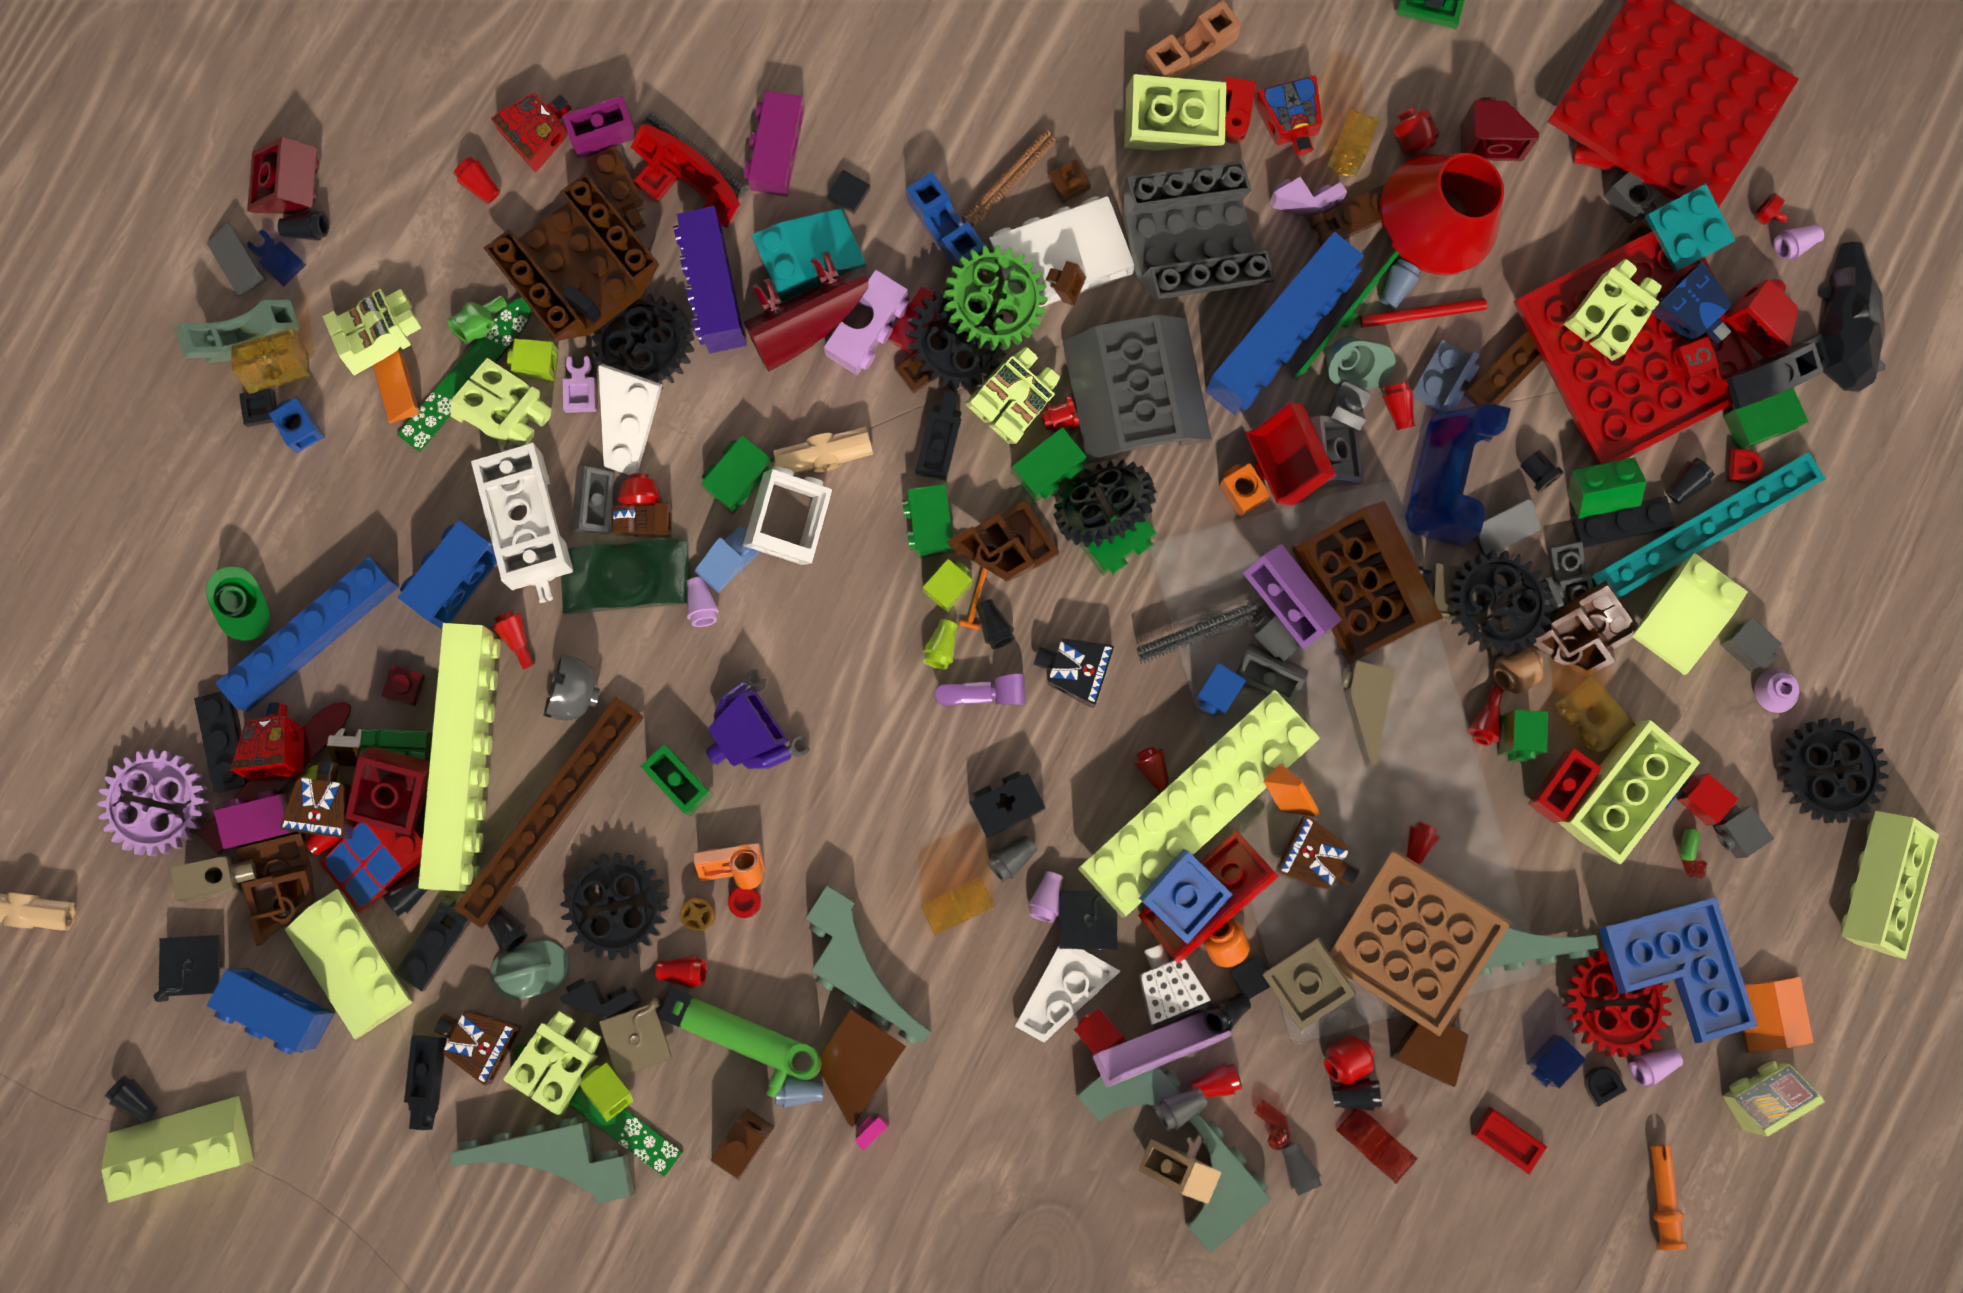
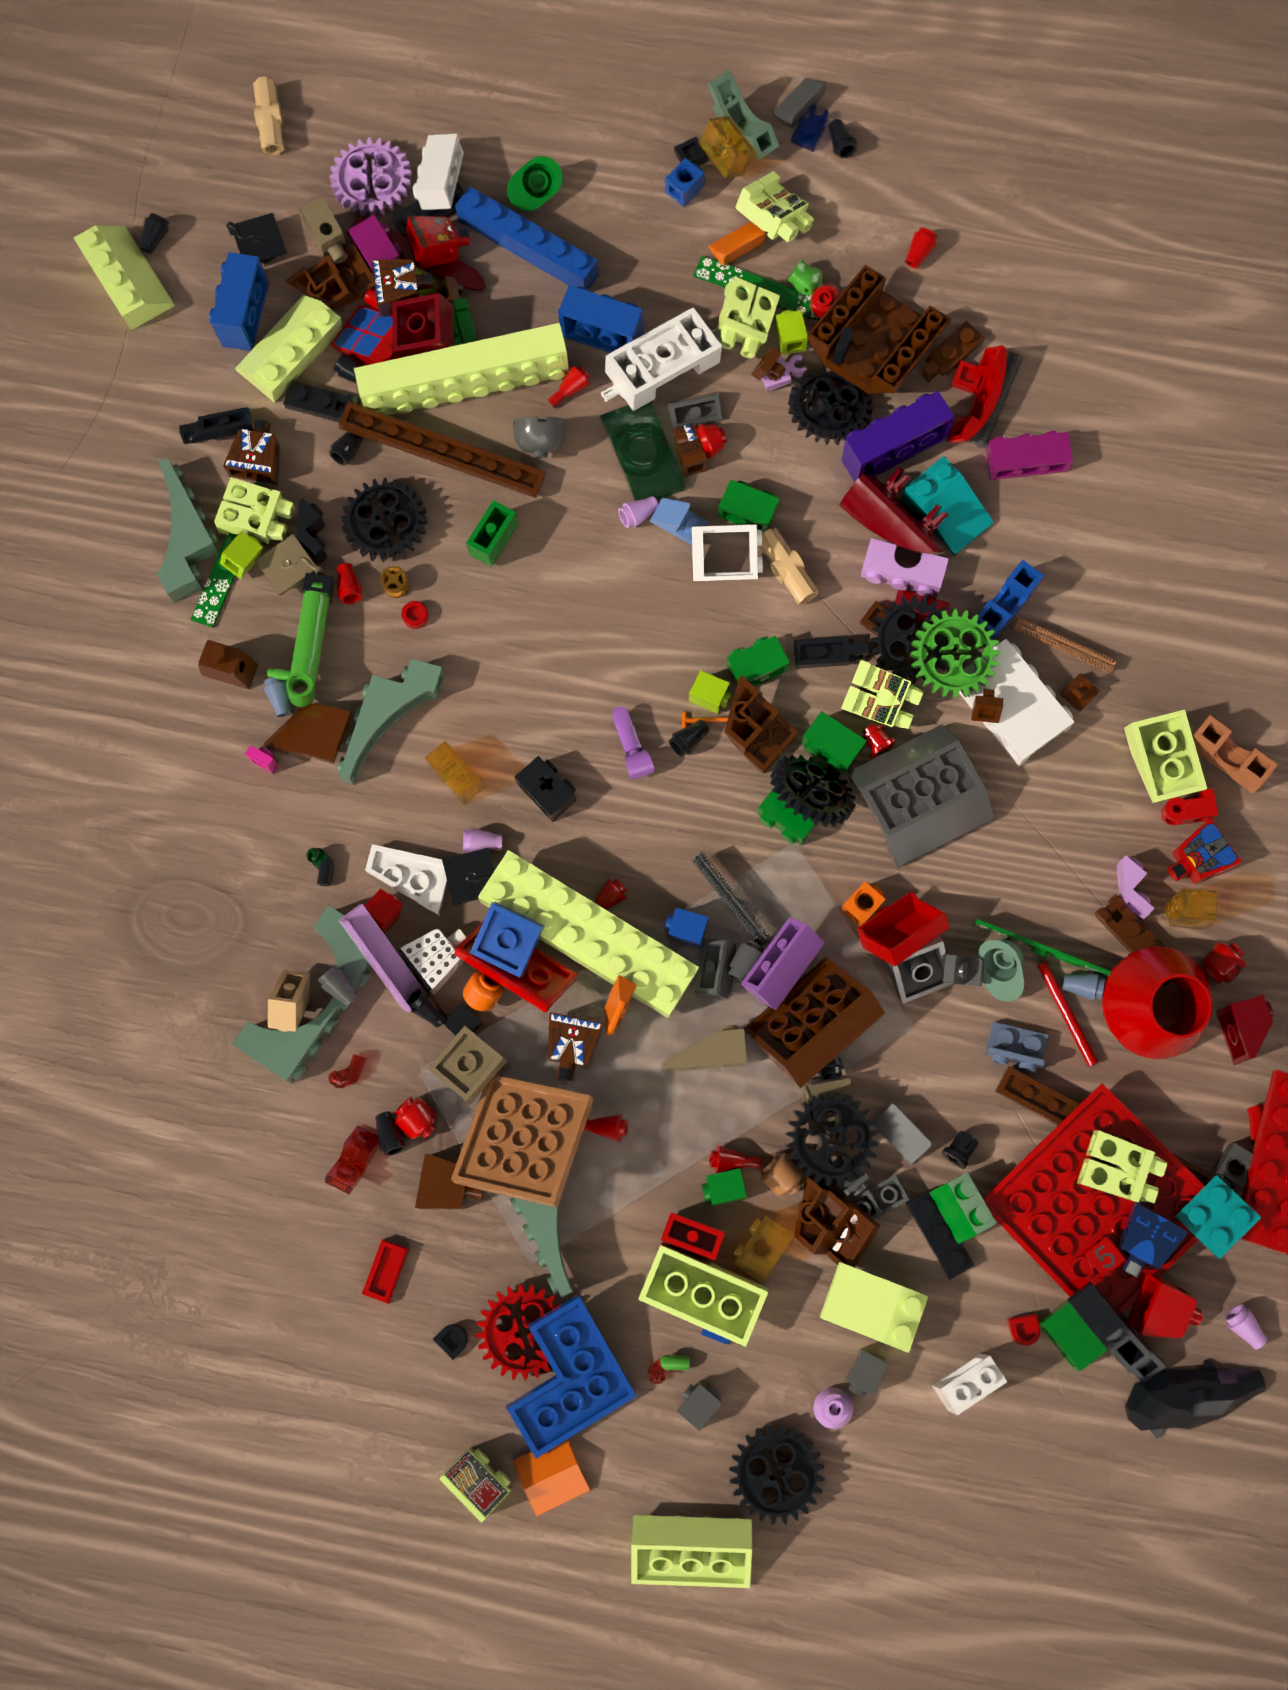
camera: 80 degrees right, 5 degrees down
(179, 716) = (438, 172): none -> white brick
(282, 177) = (874, 112): dark red slope -> none
(403, 685) = (509, 319): dark red plate -> none
(501, 312) = (820, 294): none -> red cone
(529, 970) = (320, 476): sand green piece -> none
(533, 127) = (976, 274): red torso -> none
(573, 397) = (769, 366): none -> reddish brown tile
(599, 126) = (994, 319): magenta brick -> none
(626, 417) = (766, 410): white wing -> none
(729, 862) = (443, 602): orange plate -> none
(747, 730) = (547, 573): dark purple torso -> none
(848, 192) = (1009, 524): black tile -> none
(940, 647) = (658, 701): lime cone -> none
(1011, 858) = (504, 805): dark grey cone -> none
(1019, 1090) = (323, 863): none -> arm
(1077, 668) = (672, 812): torso -> none
(1192, 231) = (1068, 798): dark grey slope -> none
(1219, 1081) = (370, 1018): red cone -> none
(1284, 323) = (1014, 896): blue brick -> none
(1300, 1170) = (317, 1103): dark grey cone -> none
(1400, 404) = (979, 1014): red cone -> none
(1437, 499) = (896, 1062): clear blue windscreen -> none
(1555, 1062) = (458, 1291): clear blue brick -> none
(1655, 1066) = (478, 1379): lavender cone -> none
(1667, 1212) = (359, 1420): orange pin -> none
(1690, 480) = (994, 1282): black cone -> none
(1706, 798) = (719, 1366): red brick -> none
(1711, 525) = (960, 1311): teal plate -> none
(1771, 209) = (1266, 1293): red tile -> none
(1795, 524) = (960, 1386): none -> white window

